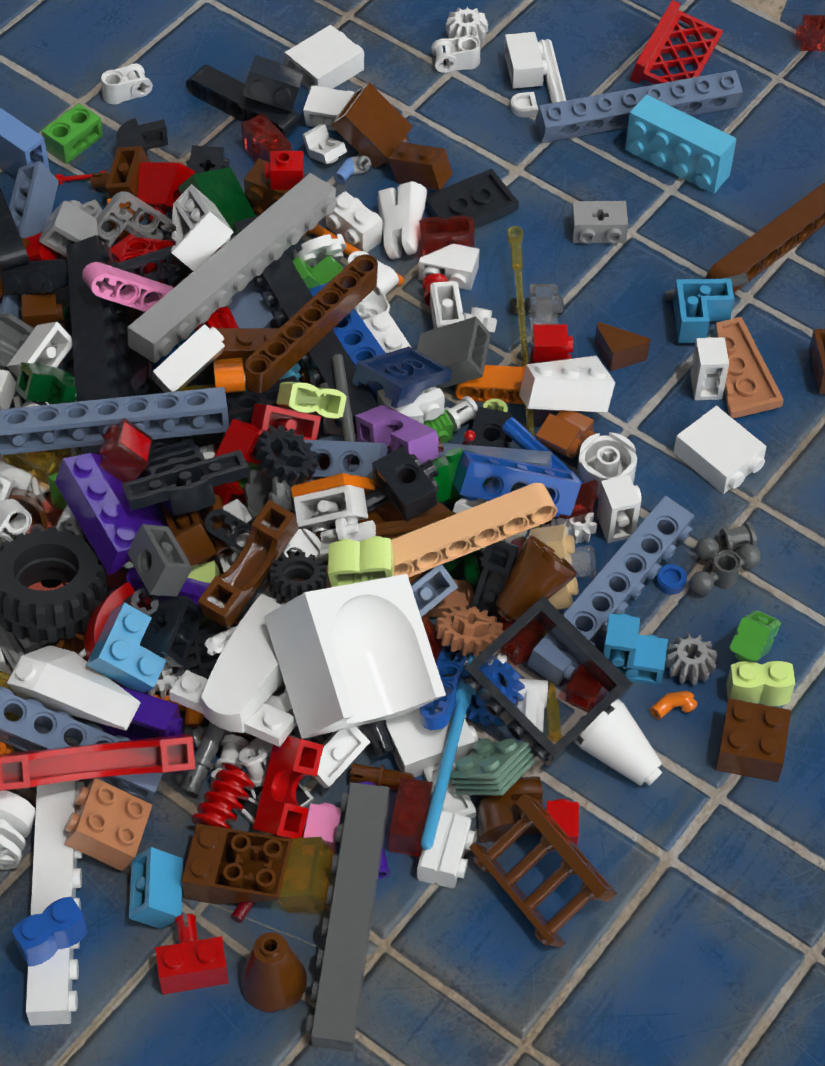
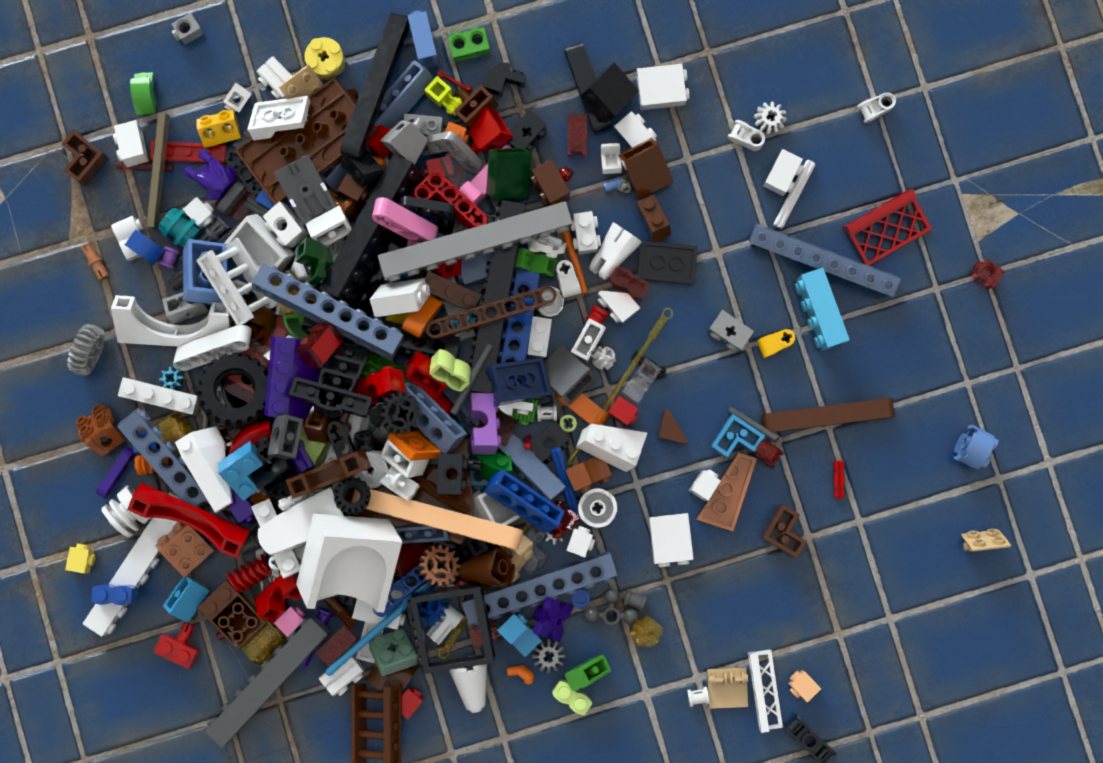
camera: 35 degrees right, 30 degrees up
(72, 184) = (441, 95): none -> neon yellow brick
(123, 84) = (529, 23): white piece -> none
(198, 228) = (472, 201): white wedge -> none
(273, 975) = (214, 681): reddish brown cone -> none
(284, 169) = (555, 185): red brick -> none
(360, 561) = (391, 510): yellowish green brick -> none
(524, 105) = (760, 204): white tile -> none
(657, 609) = (550, 618): none -> dark purple plant
(658, 204) = (773, 344): none -> yellow piece
(751, 301) = (768, 453): none -> clear red piece
(753, 740) = (541, 726): reddish brown brick -> none
(783, 555) = (646, 632): none -> clear yellow brick

